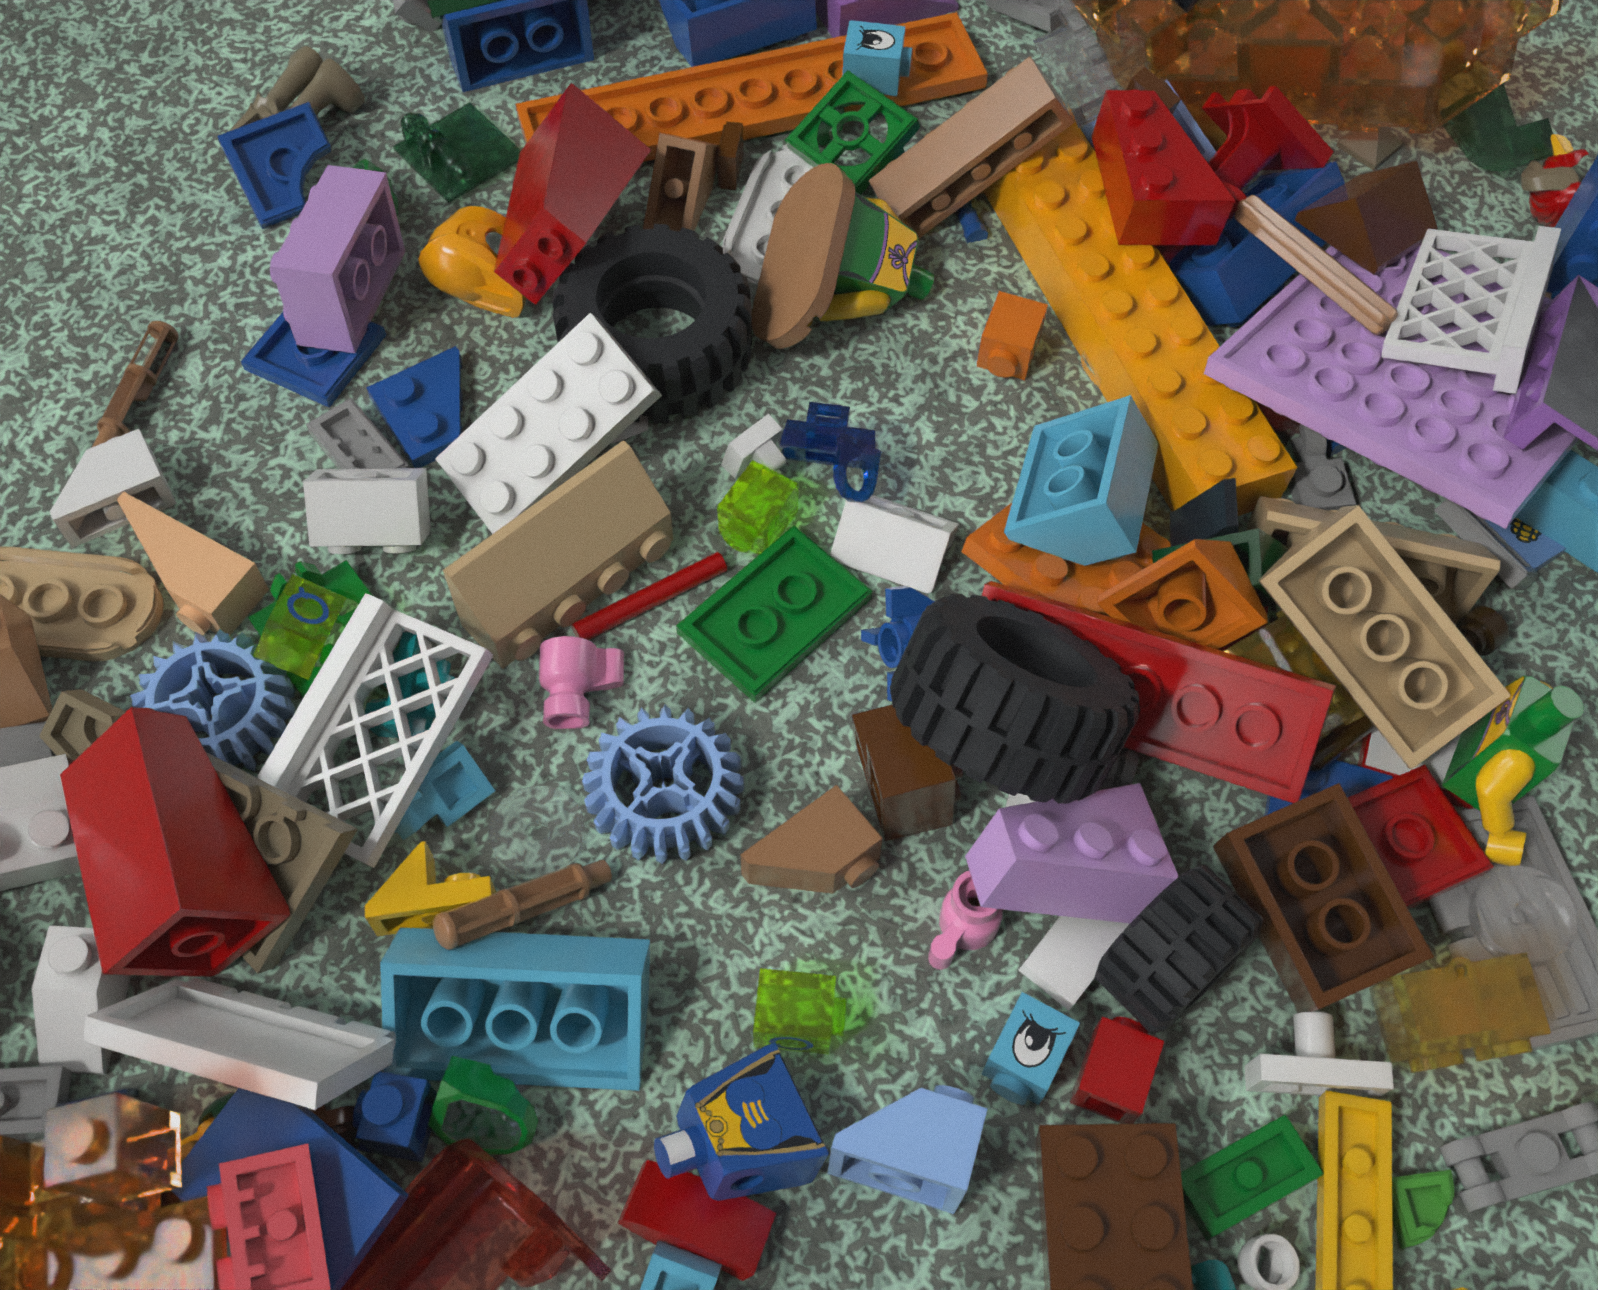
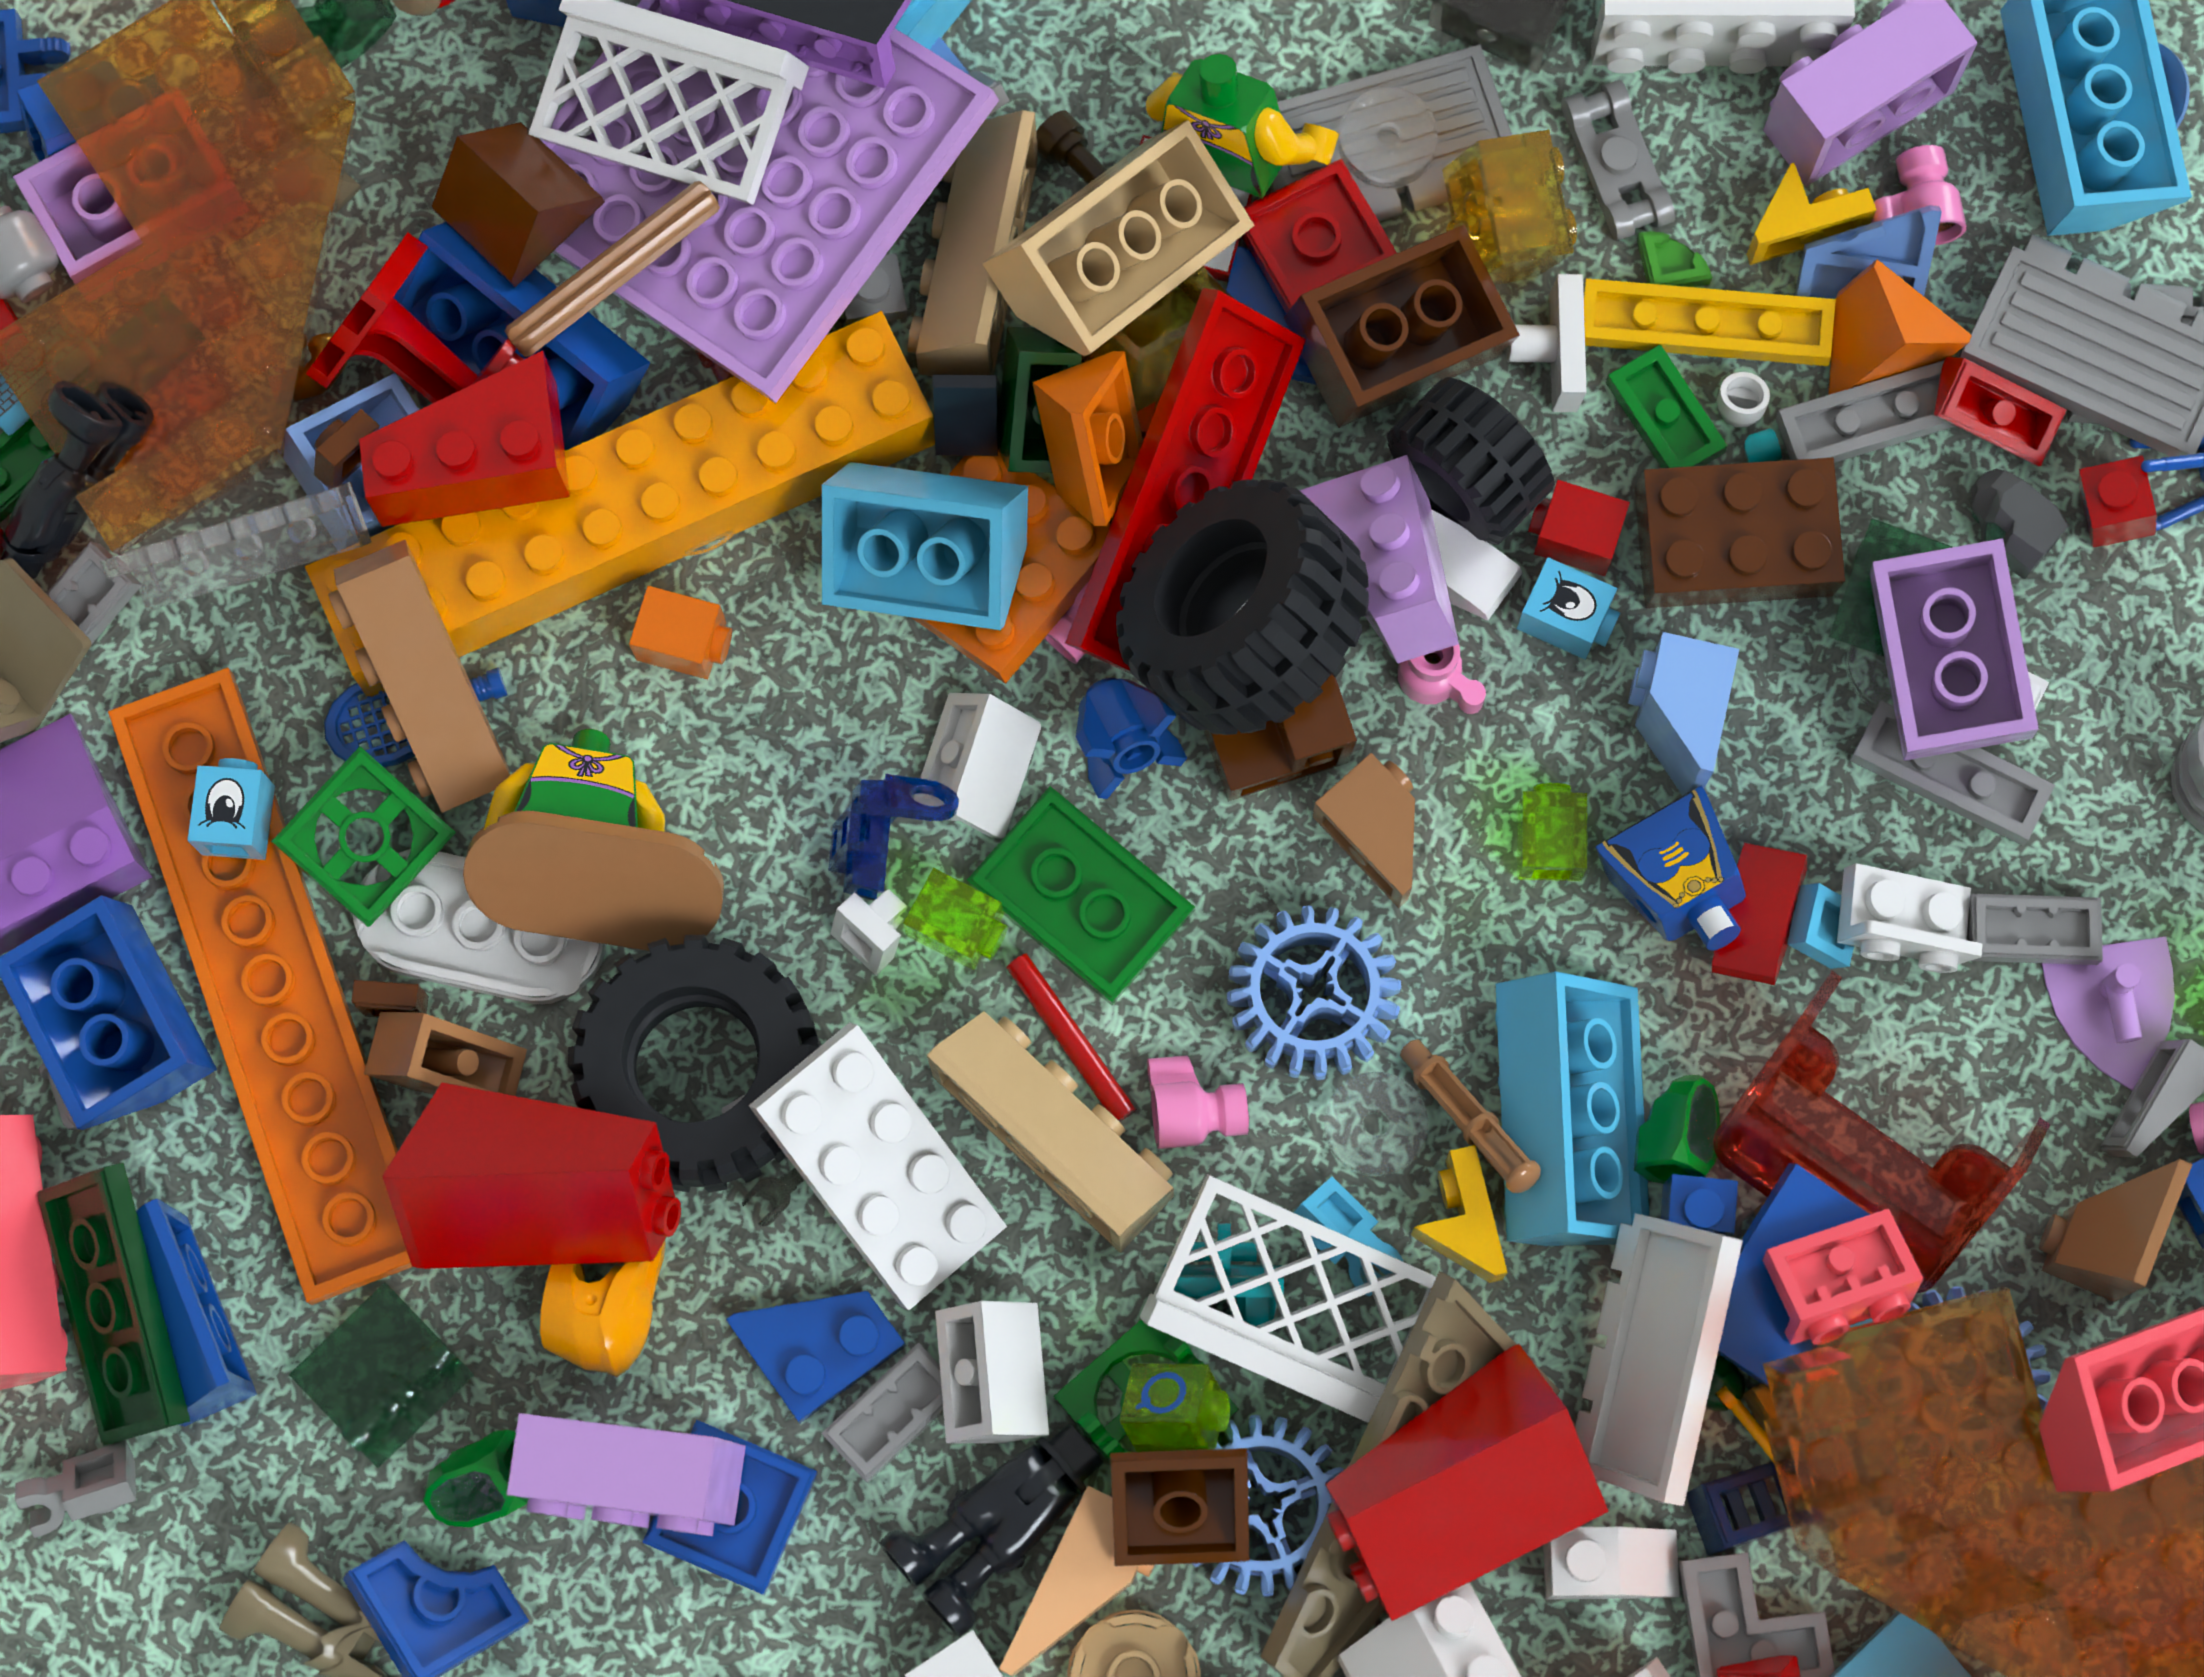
camera: 90 degrees left, 15 degrees up
(216, 616) = (1180, 1507): none -> reddish brown slope
(260, 524) = (1008, 1514): none -> black piece

